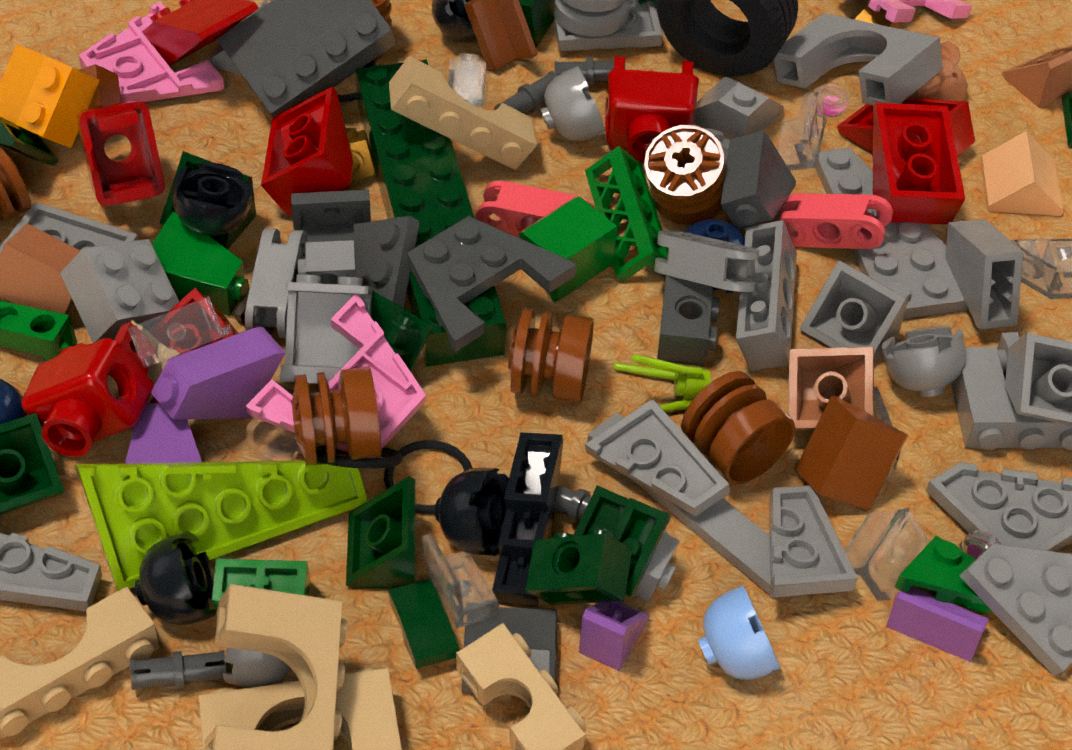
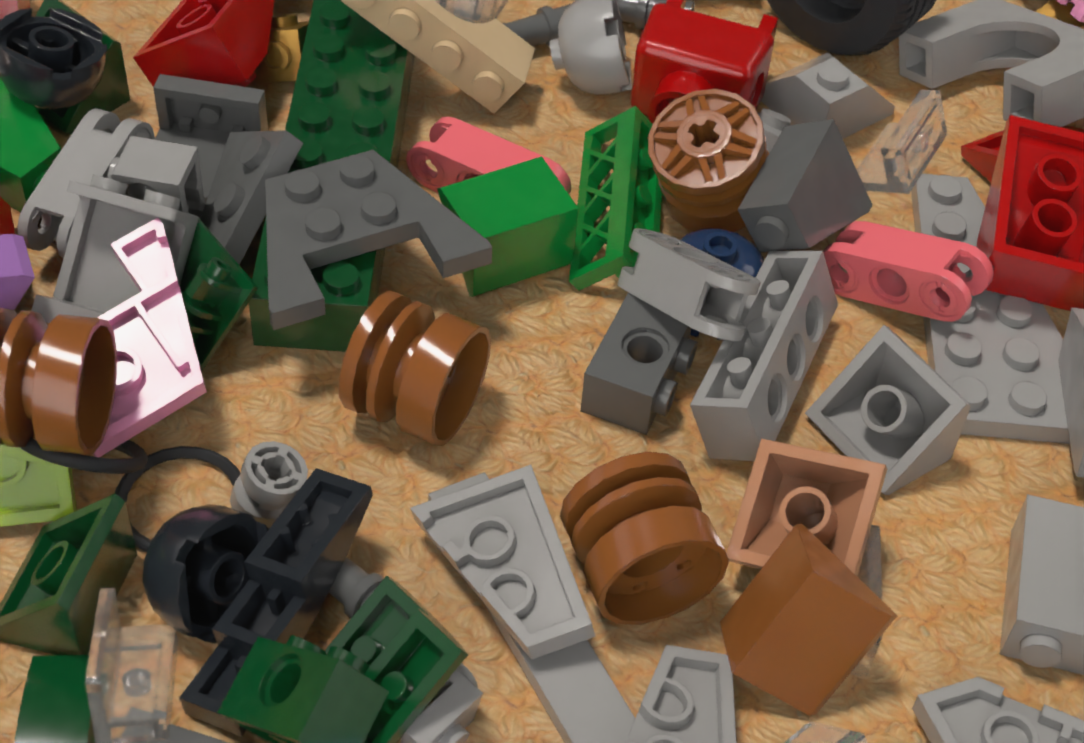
camera: 15 degrees right, 0 degrees up
(489, 447) = (268, 481): none -> light grey wheel
(687, 380) = (601, 443): lime plant -> none
(833, 99) = (965, 111): clear tile -> none
(926, 359) = (974, 504): light grey cylinder -> none

